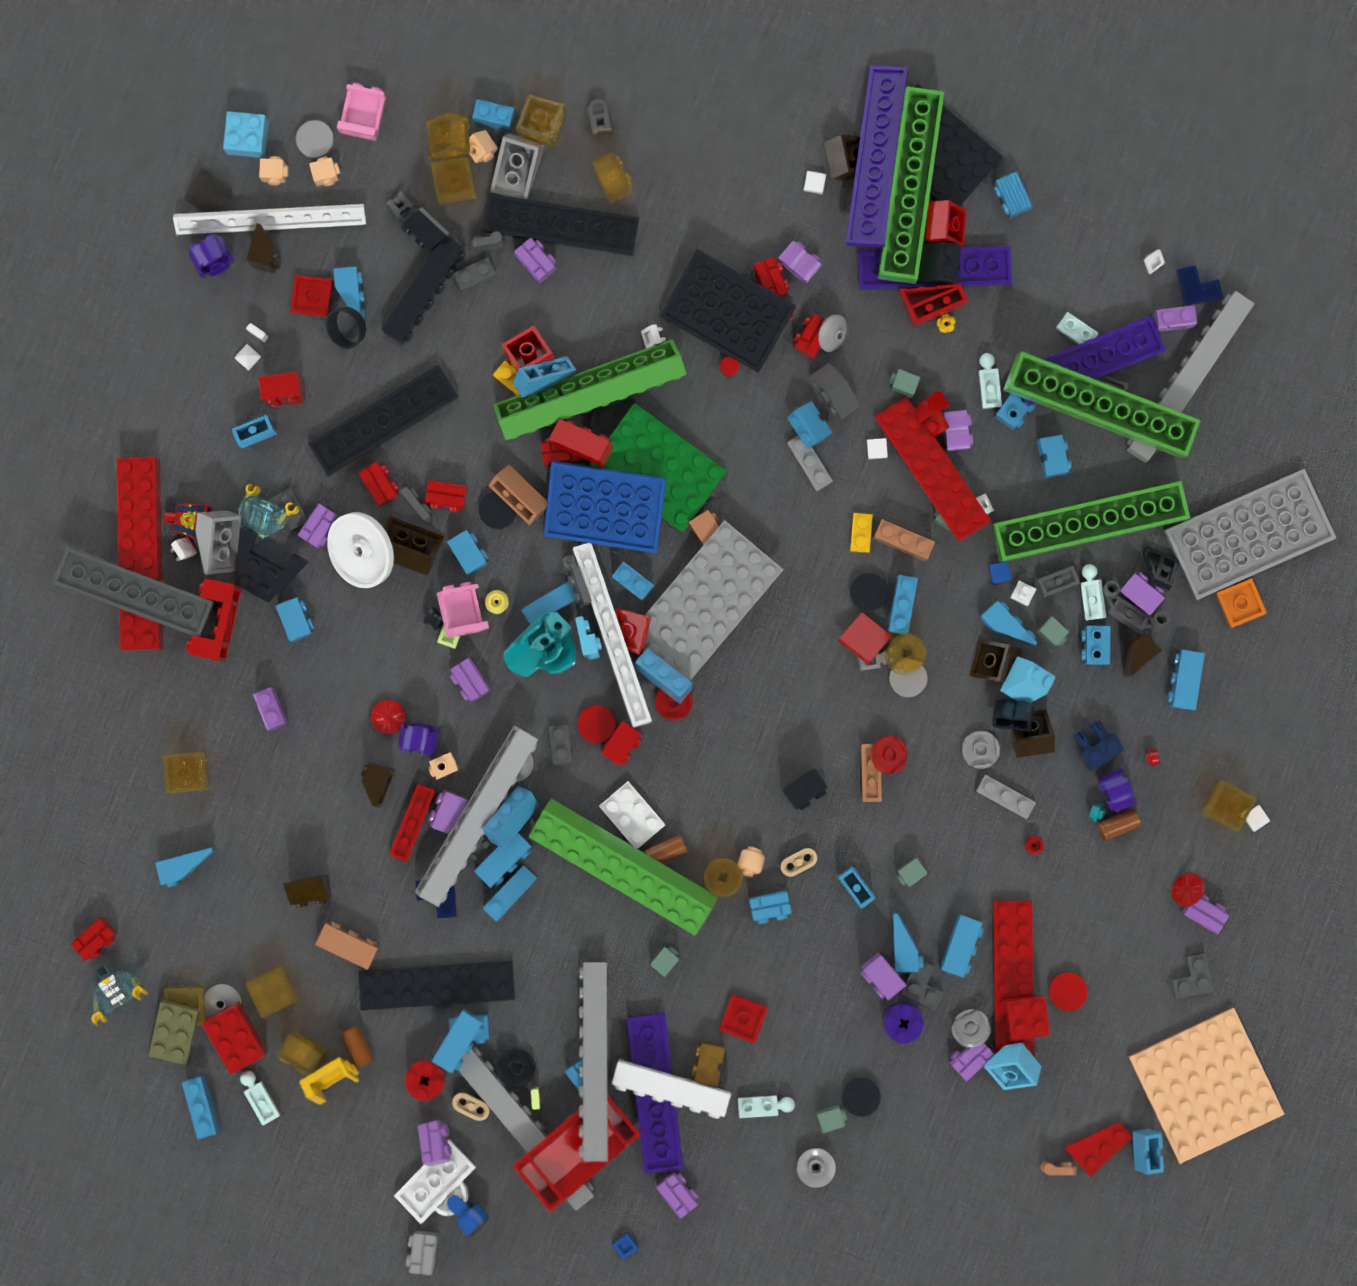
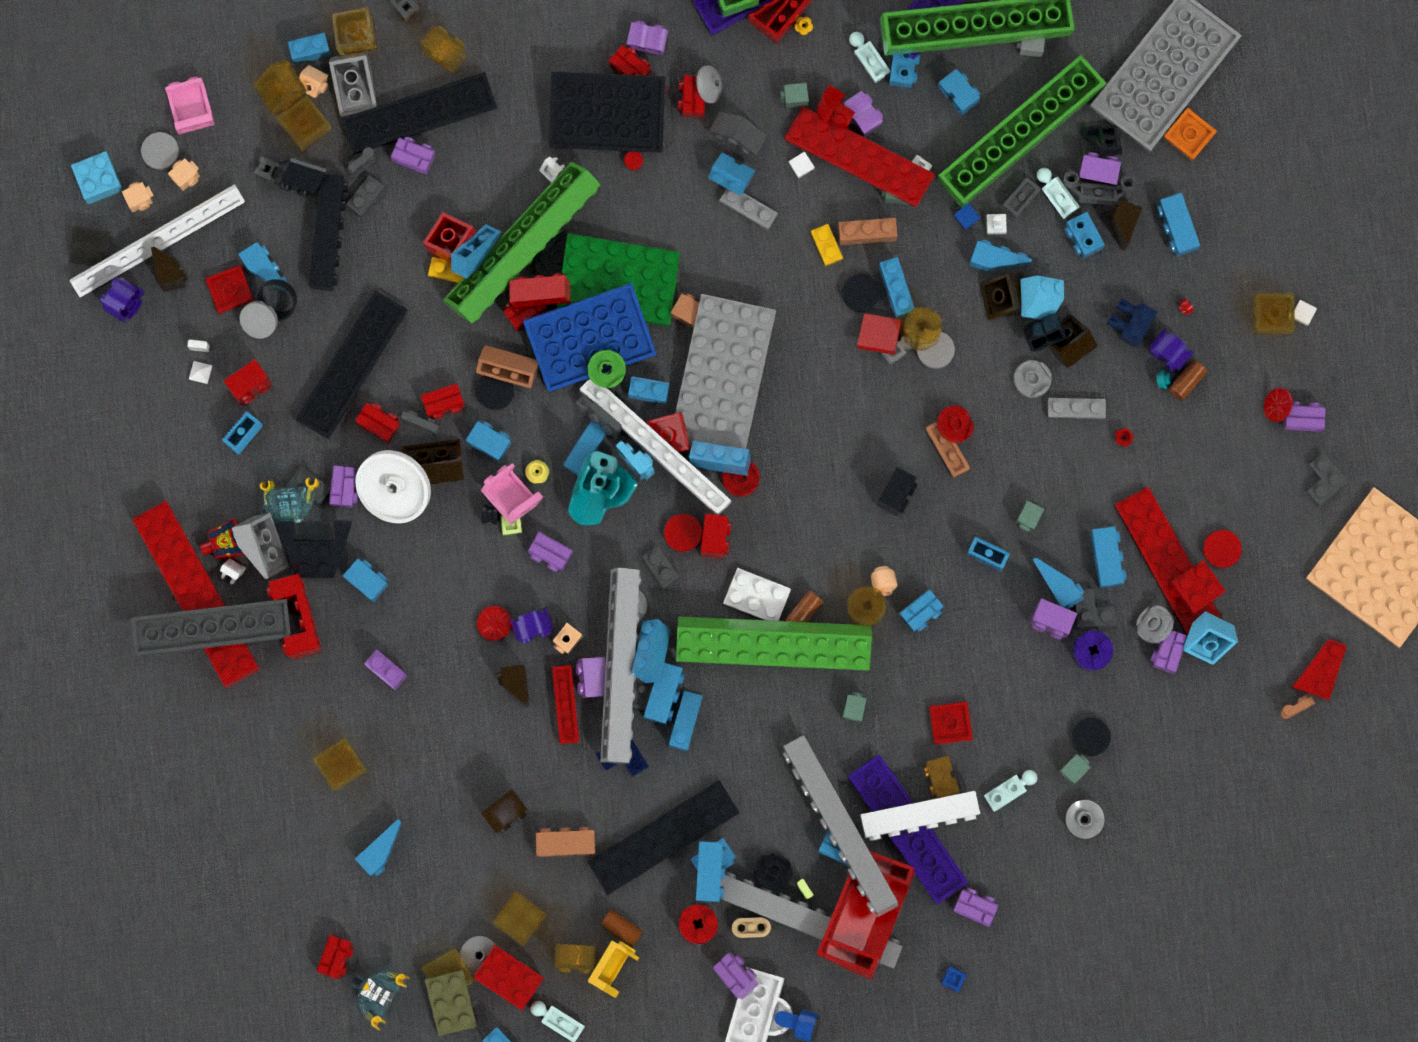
camera: 30 degrees left, 5 degrees down
(321, 337) = (258, 319): none -> light grey tile
(596, 536) = (609, 358): none -> bright green plate
(798, 861) = (926, 560): tan plate -> none
(1053, 632) = (1041, 243): sand green brick -> none
(1147, 1151) = (1366, 650): dark azure brick -> none

